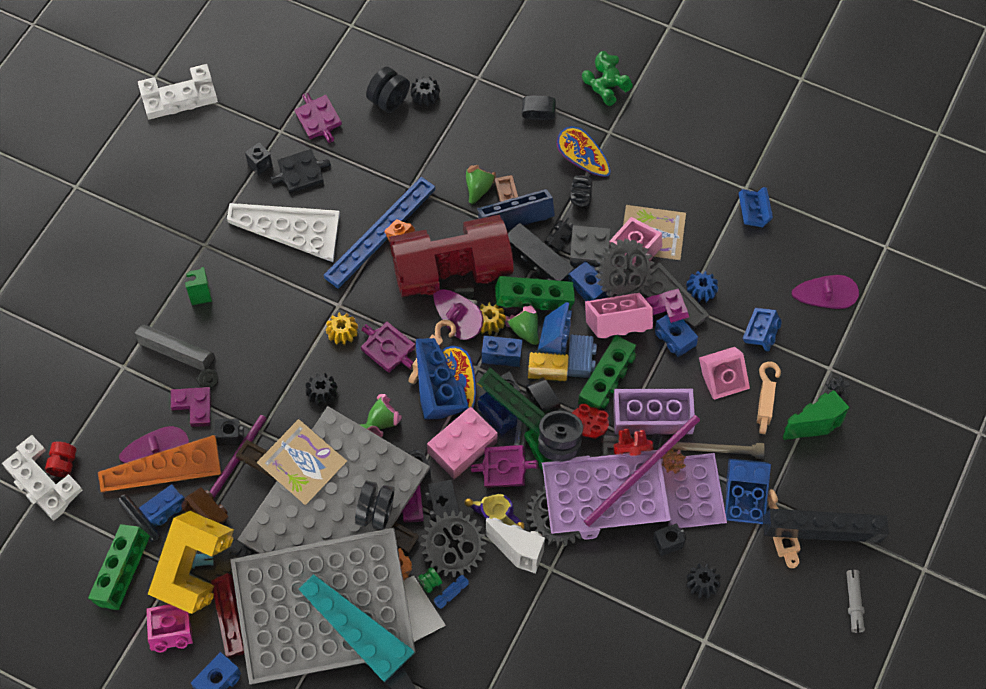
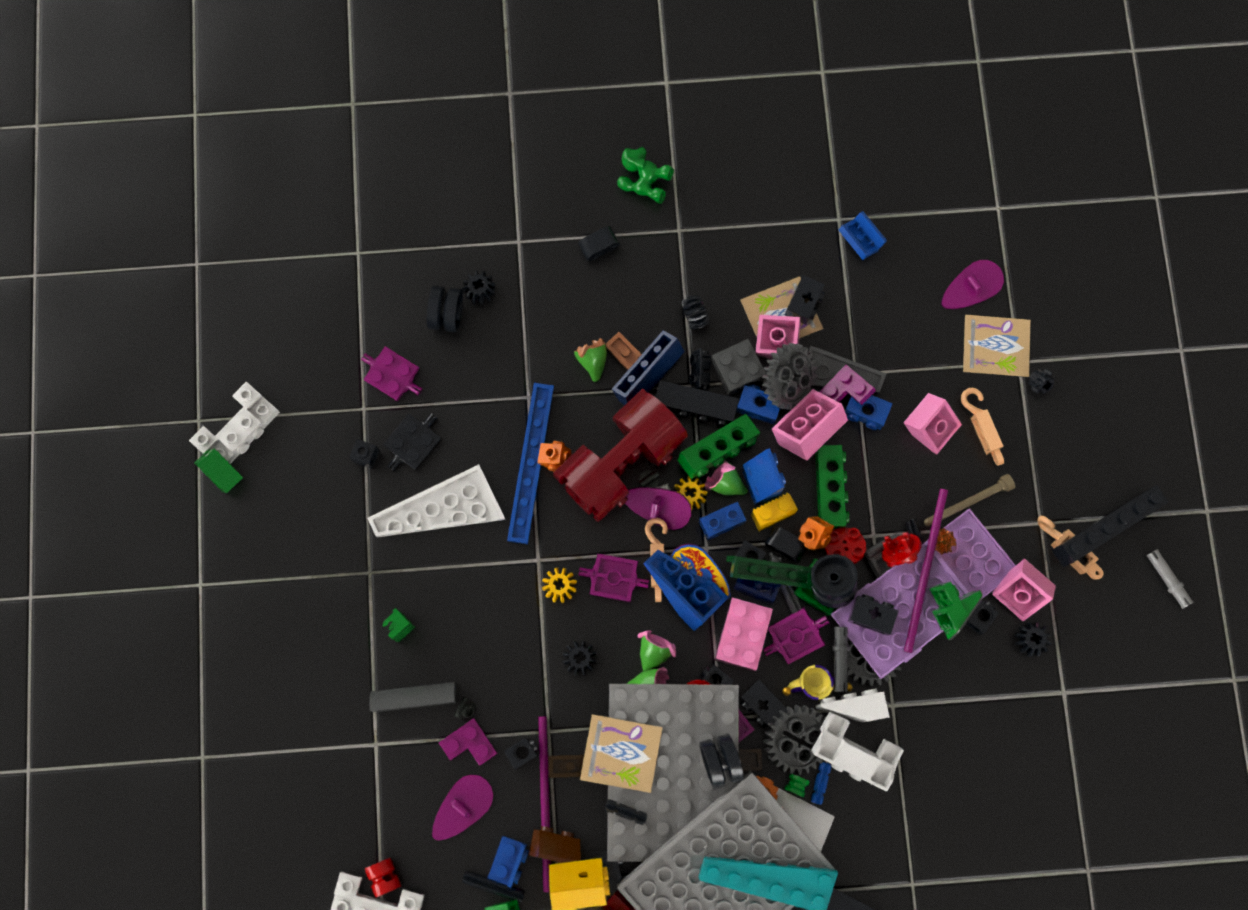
camera: 30 degrees left, 15 degrees up
(144, 112) = (218, 470): none -> green hinge
(175, 464) = (498, 812): orange wing -> none
(275, 506) = (625, 812): none -> black axle
(489, 582) = (849, 756): none -> white bracket
(532, 491) = (840, 665): none -> dark grey pin
(570, 395) = (815, 533): none -> orange brick
(577, 488) = (860, 614): none -> black brick
(580, 356) = (797, 482): medium blue brick -> none
(582, 151) = (670, 268): shield -> none
(645, 507) = (952, 609): none -> green piece
(652, 410) = (895, 501): lavender brick -> none
(678, 228) = (808, 289): none -> black brick
(702, 286) = (869, 345): blue gear -> none
(719, 537) = (1024, 590): none -> bright pink slope
(746, 490) = (1019, 527): blue slope -> none
(762, 328) = (940, 358): blue bracket -> none
(817, 418) = (1047, 415): green slope -> none
(818, 346) = (996, 345): none -> tan sticker

